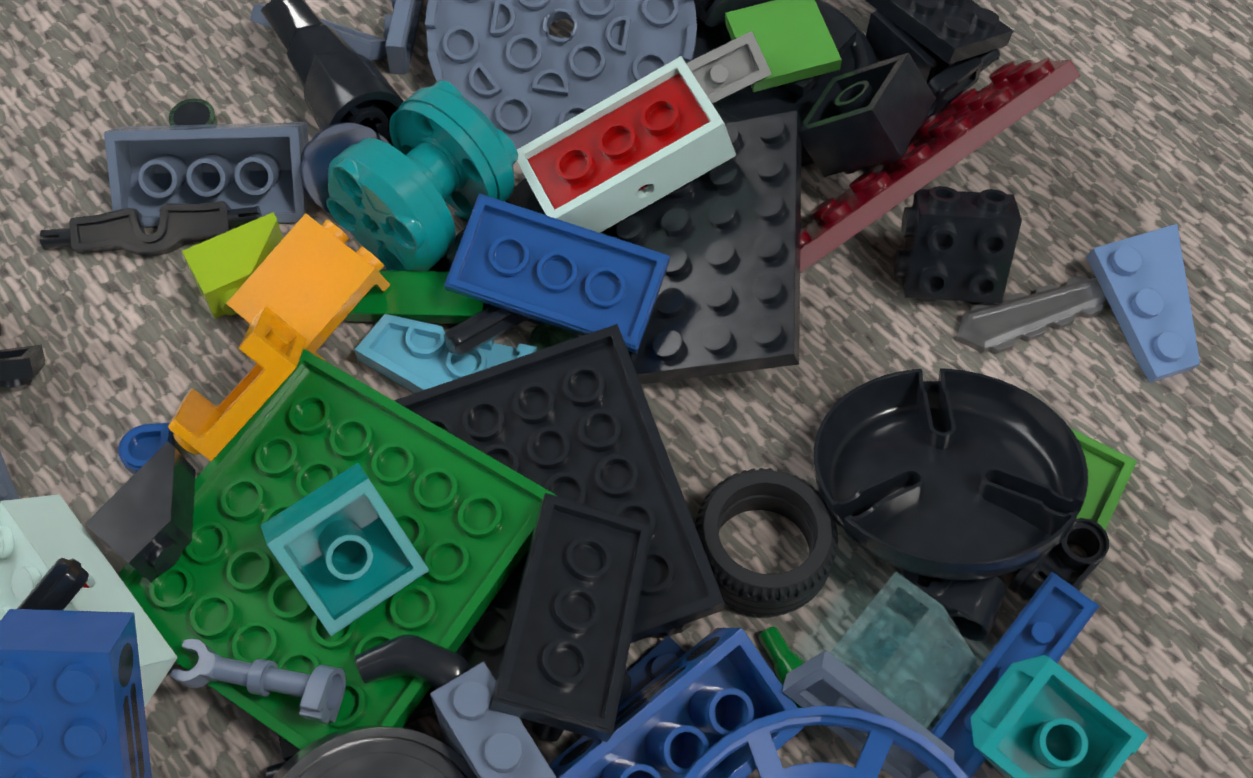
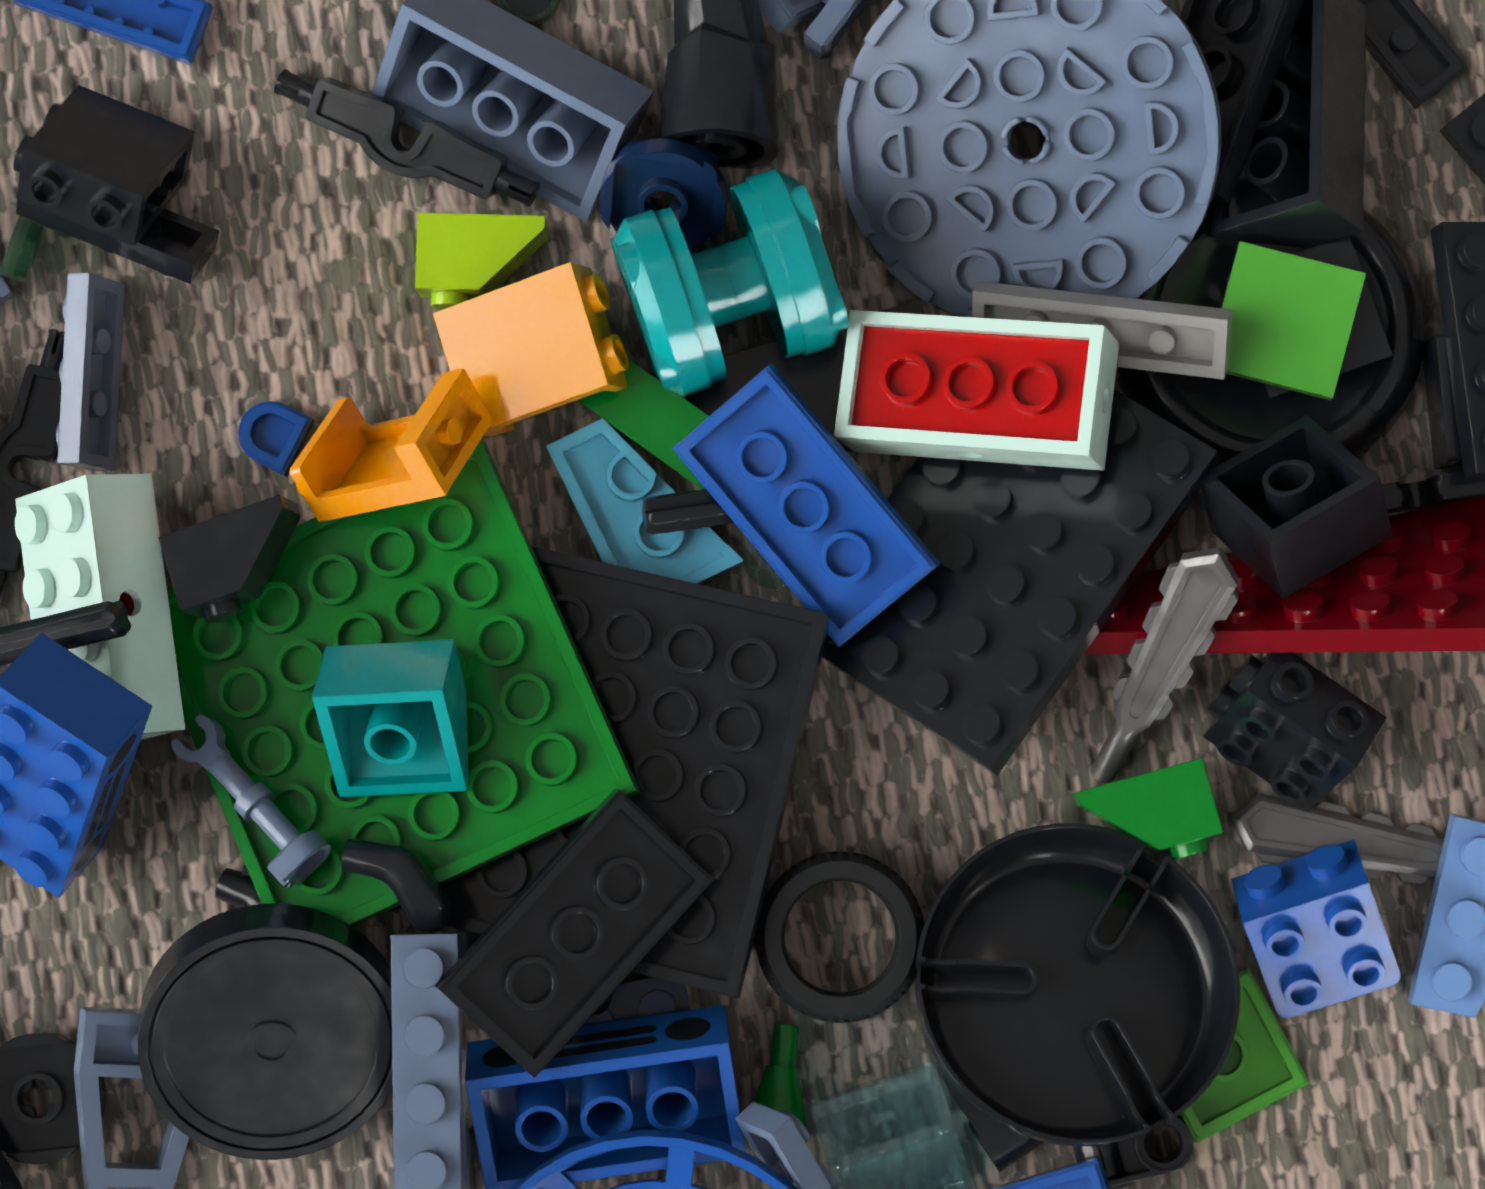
camera: 40 degrees right, 25 degrees up
(850, 206) = (1177, 628): none -> flat silver sword
(913, 340) = (1159, 807): none -> green slope
(1067, 361) = (1316, 929): none -> blue bracket

